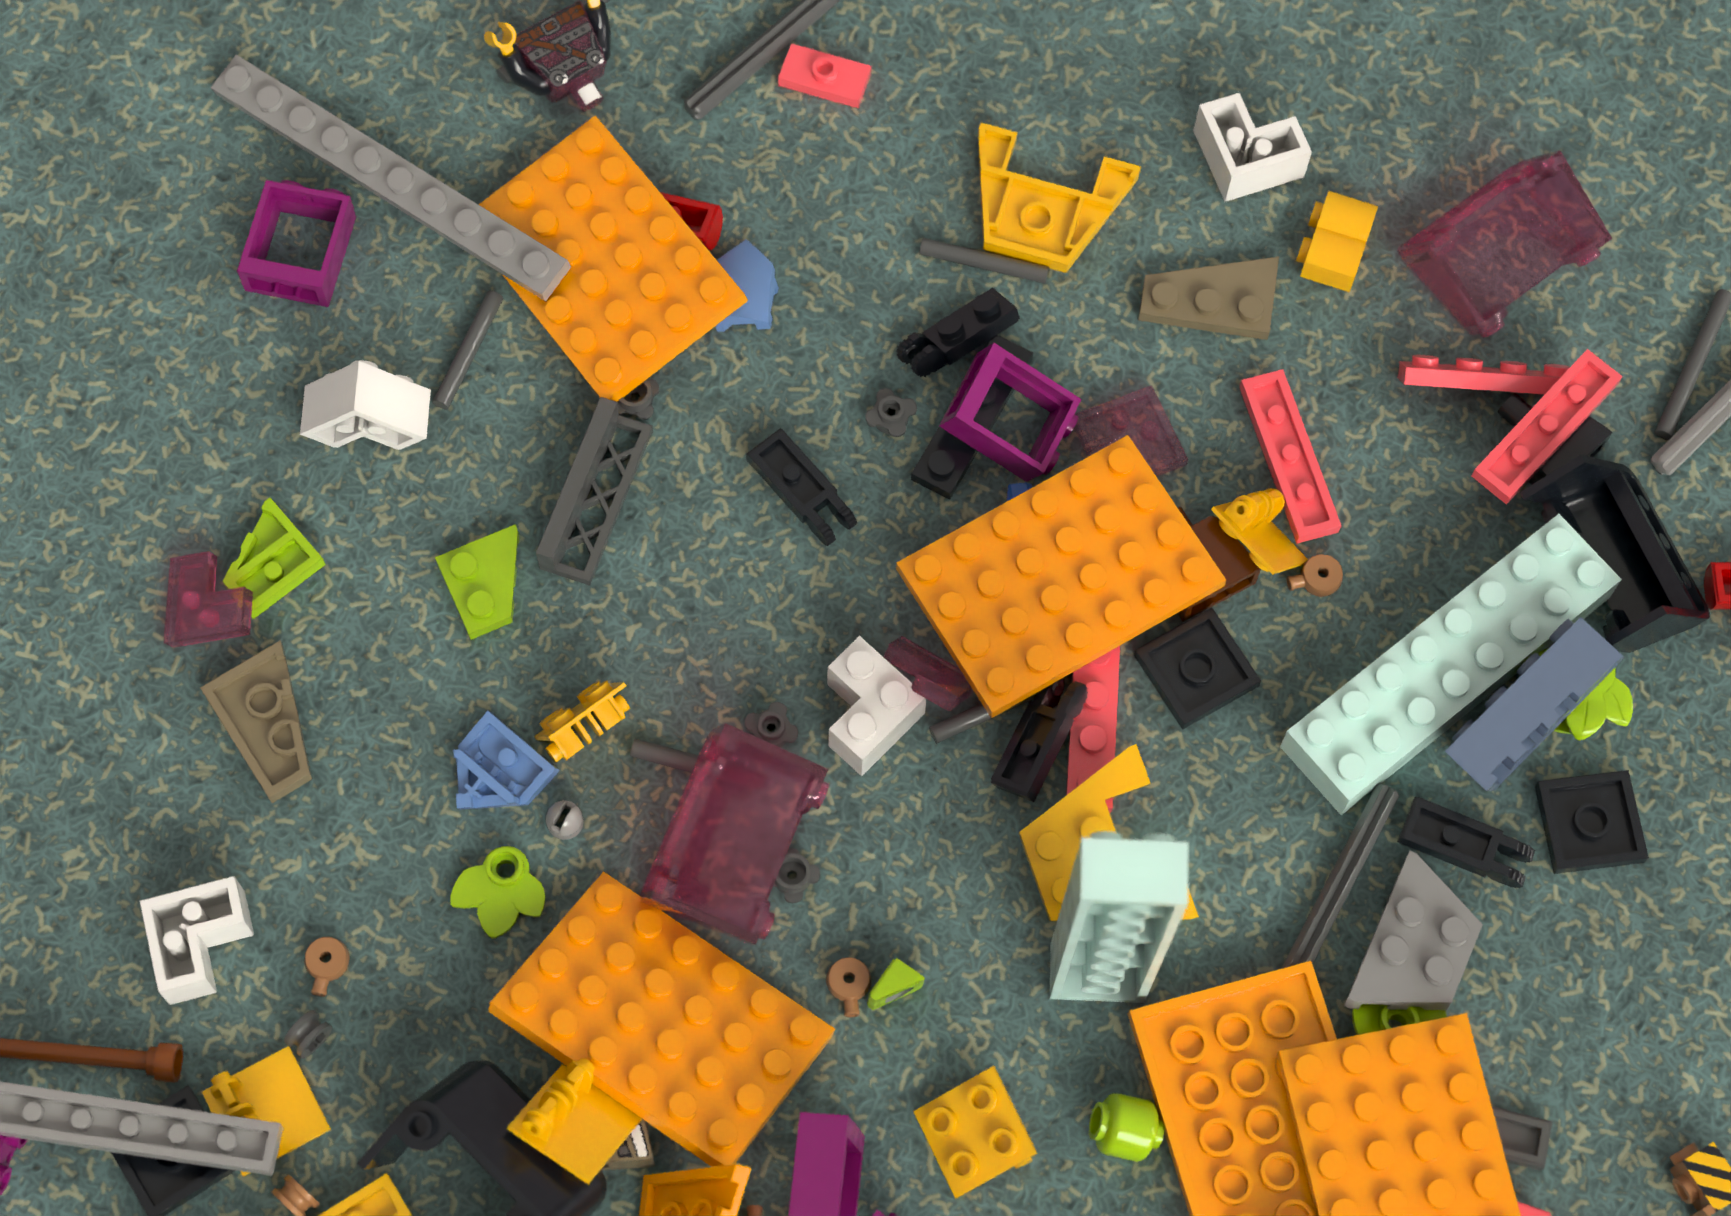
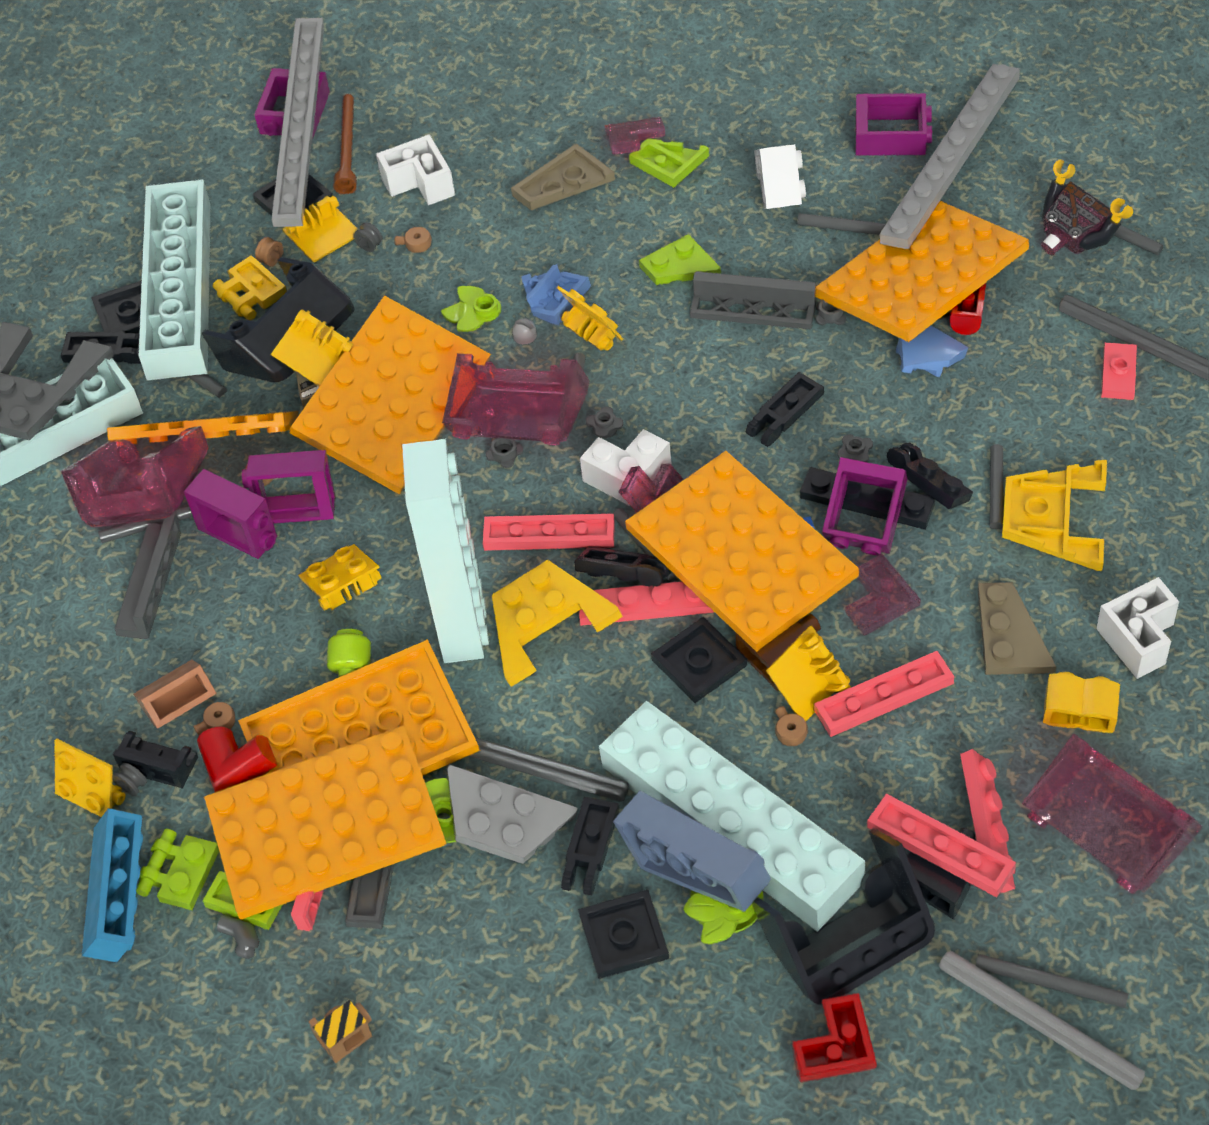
camera: 90 degrees right, 15 degrees down
(956, 830) = (548, 532): none -> coral plate

